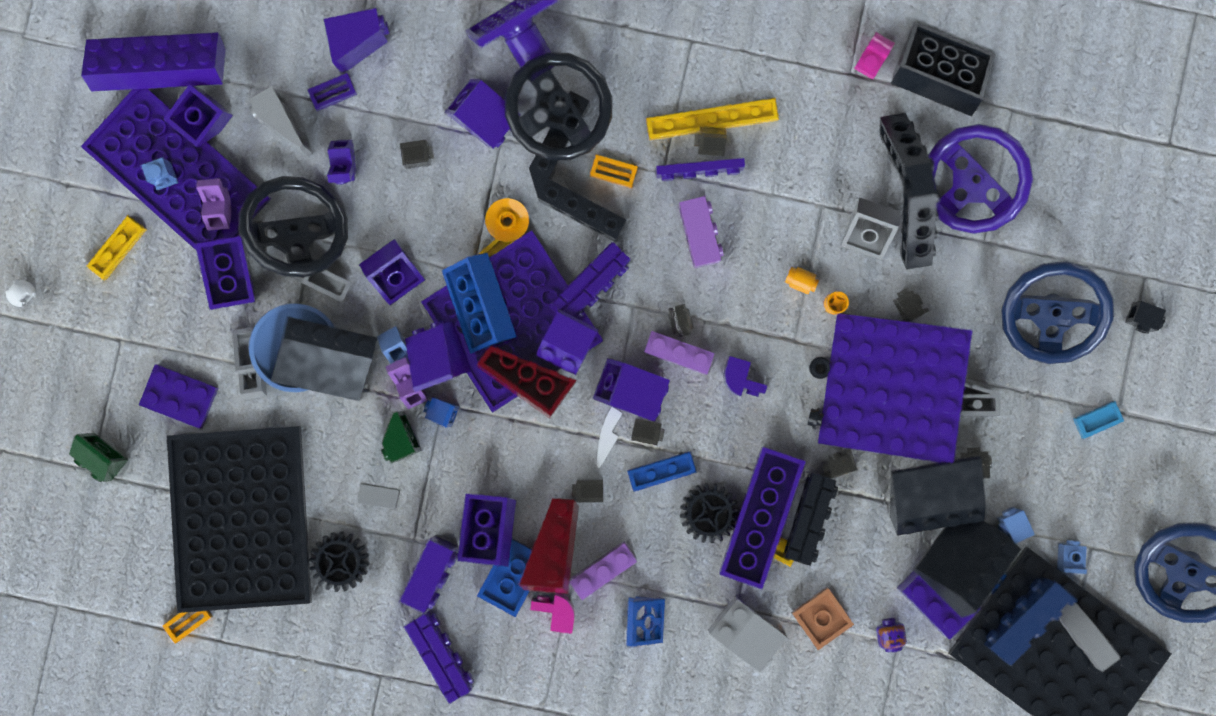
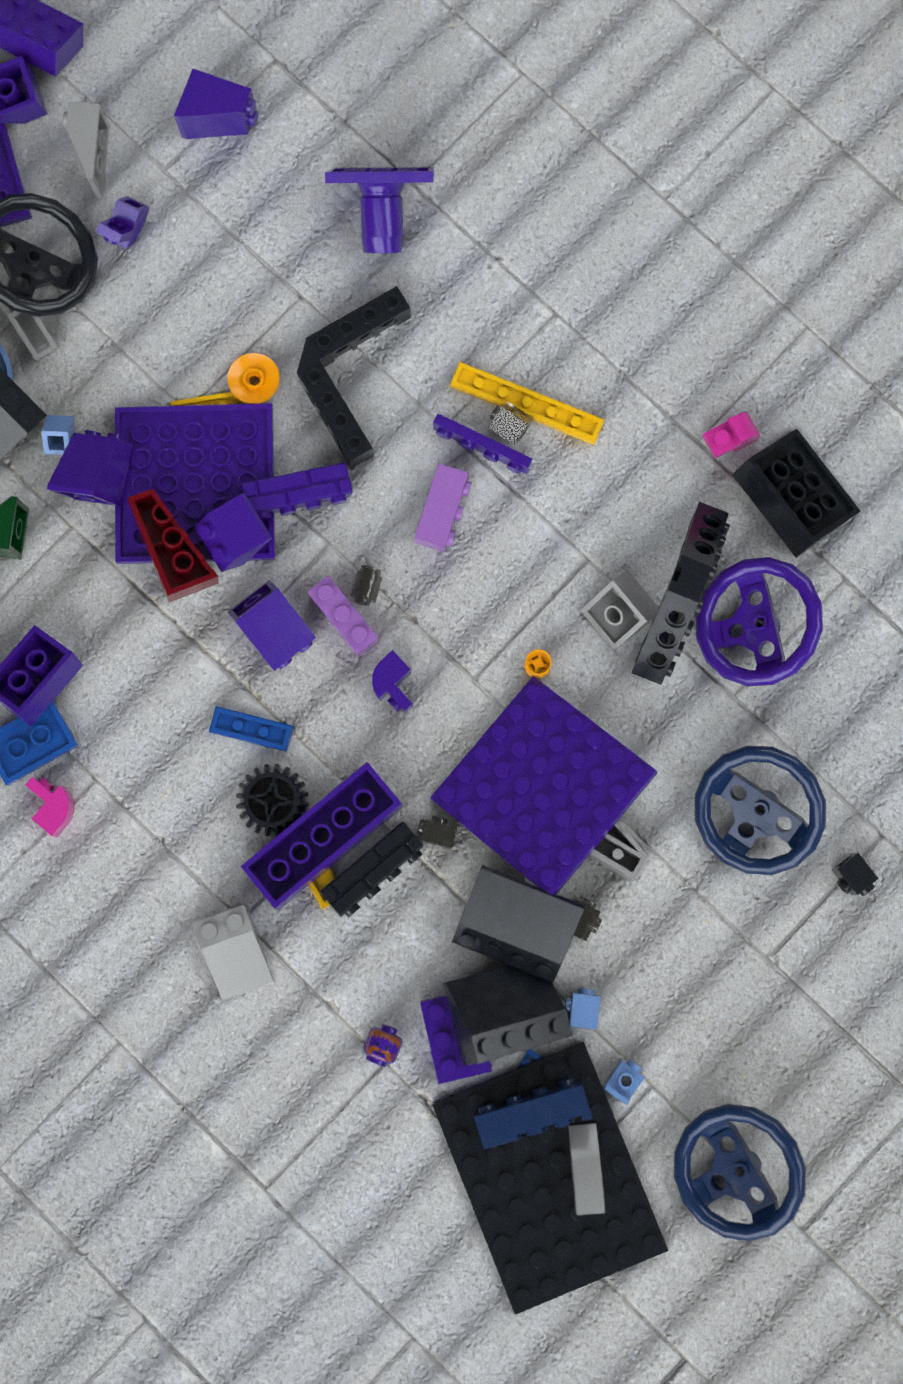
camera: 30 degrees right, 5 degrees down
(319, 106) = (159, 159): dark purple tile -> none
(391, 272) = (104, 361): dark purple slope -> none
(401, 376) = (45, 464): medium lavender brick -> none
(416, 154) = (204, 259): clear smoke brick -> none
(441, 412) = (64, 530): blue slope -> none
(478, 302) = (171, 441): blue slope -> none
(480, 113) = (297, 259): dark purple slope -> none
(526, 126) = (375, 335): black piece -> none
(553, 551) = (87, 736): dark red wedge -> none
(588, 490) = (163, 701): clear smoke brick -> none
(603, 570) = (125, 791): medium lavender brick -> none
(607, 438) = (217, 661): white sticker -> none
(631, 177) = (408, 412): light orange tile -> none
(647, 432) = (260, 677): clear smoke brick -> none
(657, 622) = (139, 894): blue piece -> none
(801, 280) = (517, 619): light orange brick -> none
(812, 367) = (484, 713): black plate -> none
(815, 418) = (442, 769): black plate -> none
(822, 618) = (321, 983): nougat plate -> none
(909, 305) = (613, 712): clear smoke brick -> none
(1098, 419) = (741, 954): dark azure tile -> none

